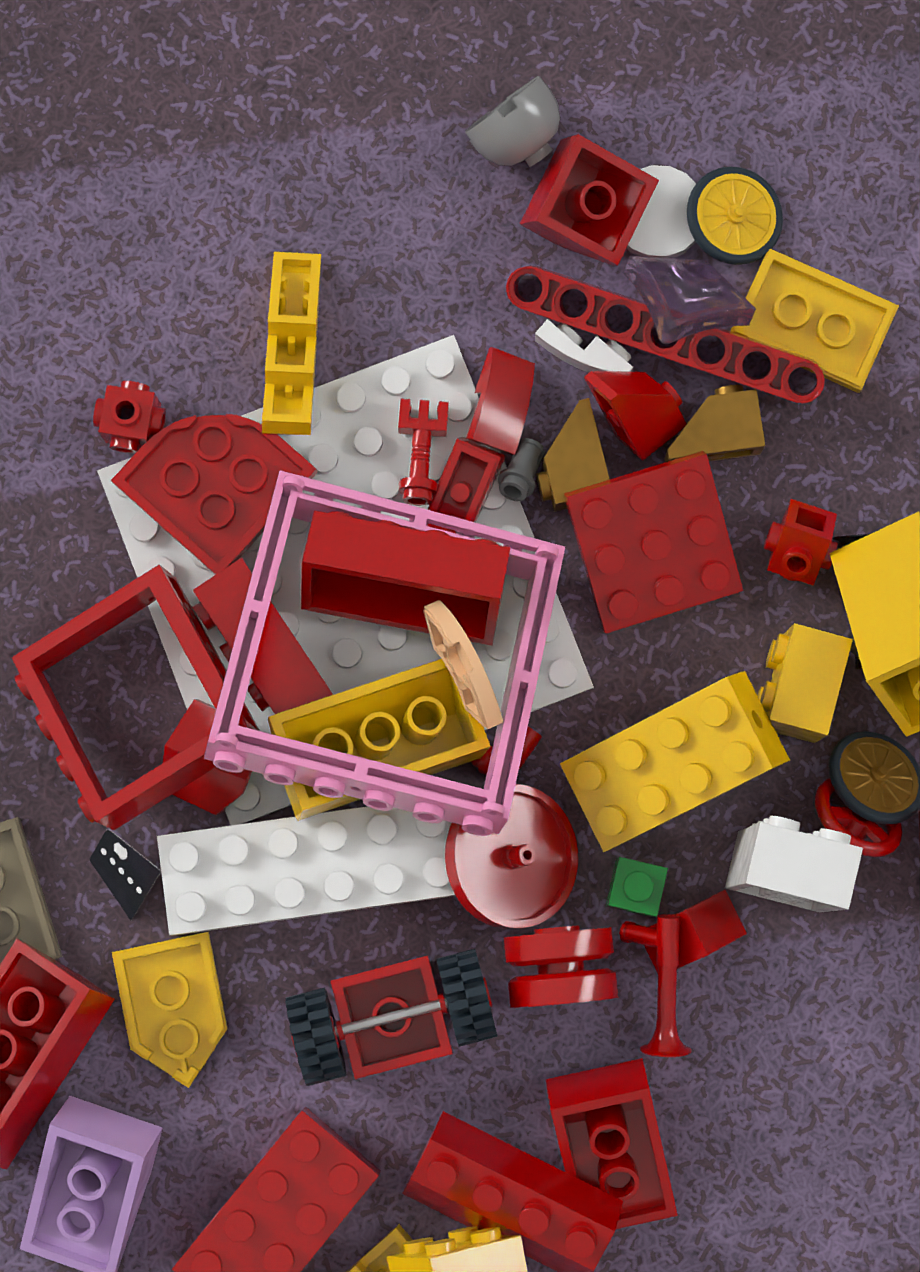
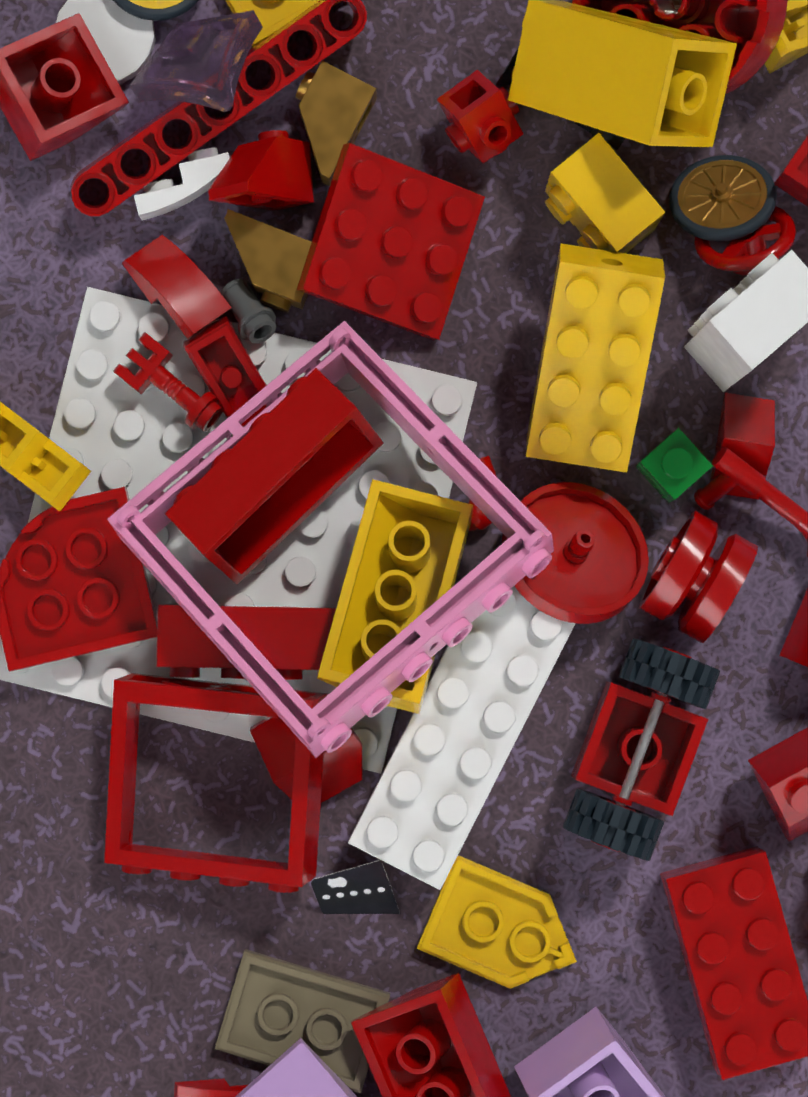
camera: 55 degrees left, 5 degrees up
(463, 664) = (388, 478): light nougat tile -> none

